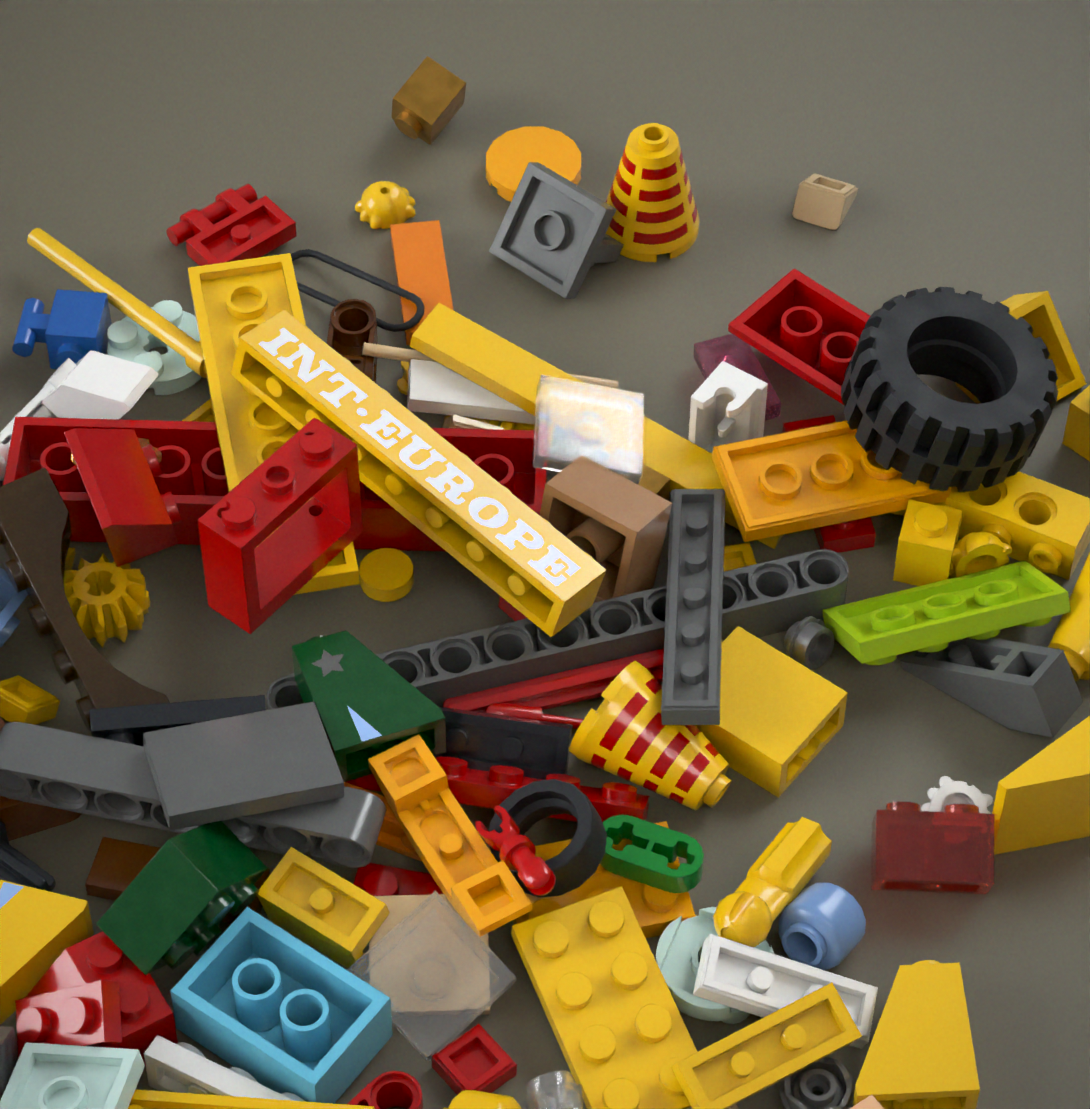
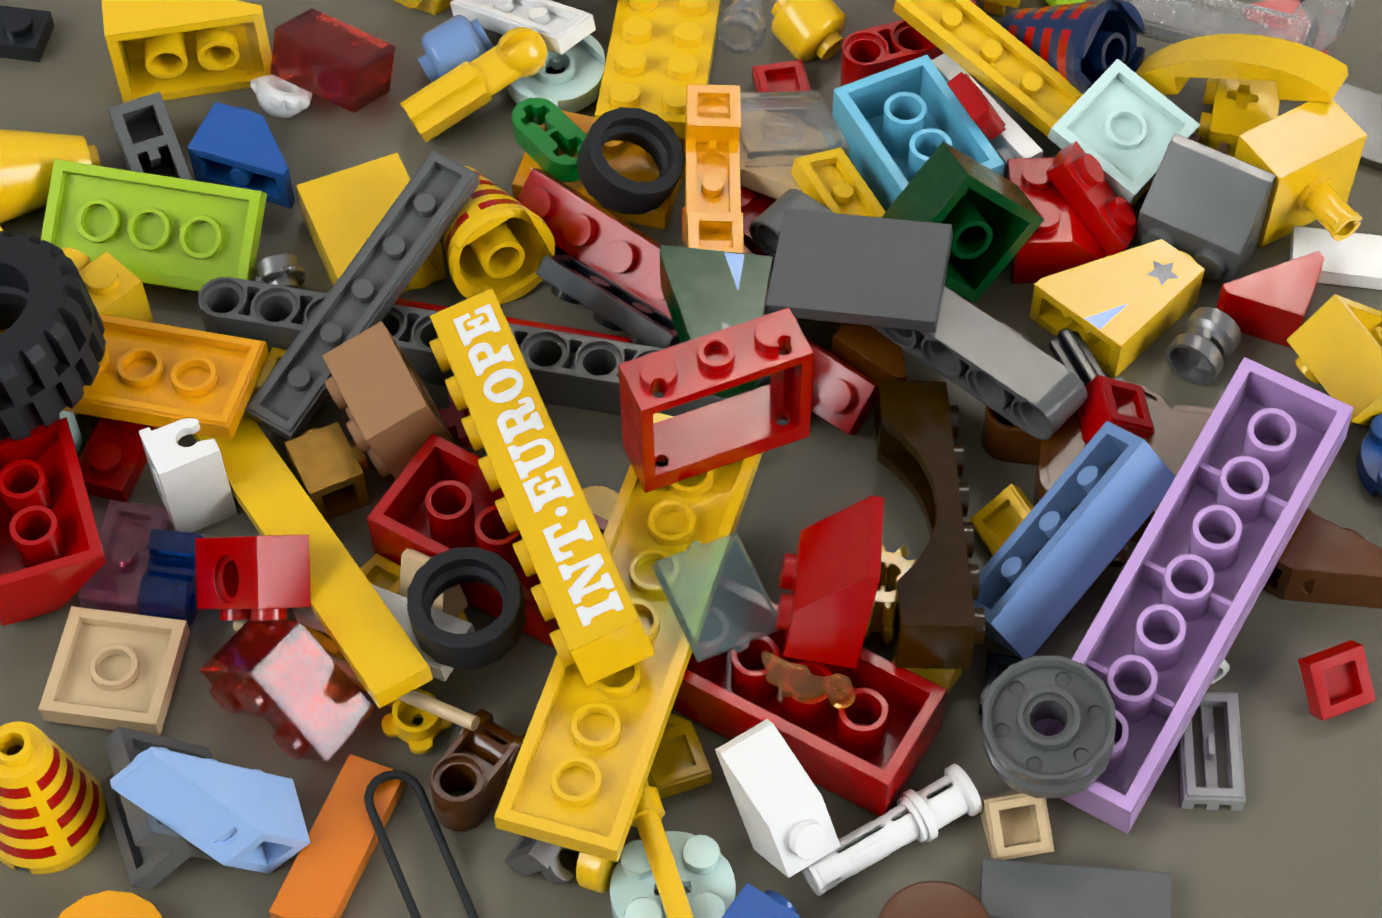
camera: 150 degrees left, 5 degrees up
(130, 722) = (891, 366): black plate -> none
(213, 452) = (716, 596): none -> clear light blue piece
(229, 1041) = (977, 105): none -> red tile
(424, 353) = (459, 567): none -> black tyre
(500, 223) = (221, 808): none -> light blue slope
(518, 854) = (671, 128): red piece -> none
(530, 712) = (561, 315): red piece -> none
(540, 317) = (290, 681): none -> clear red brick
(589, 422) = (331, 495): clear tile -> none
(607, 361) = (253, 575): none -> red brick
(672, 307) = (114, 670): none -> tan plate
(677, 371) = (170, 577): none -> clear blue leg
(933, 729) = (240, 152): none -> blue slope

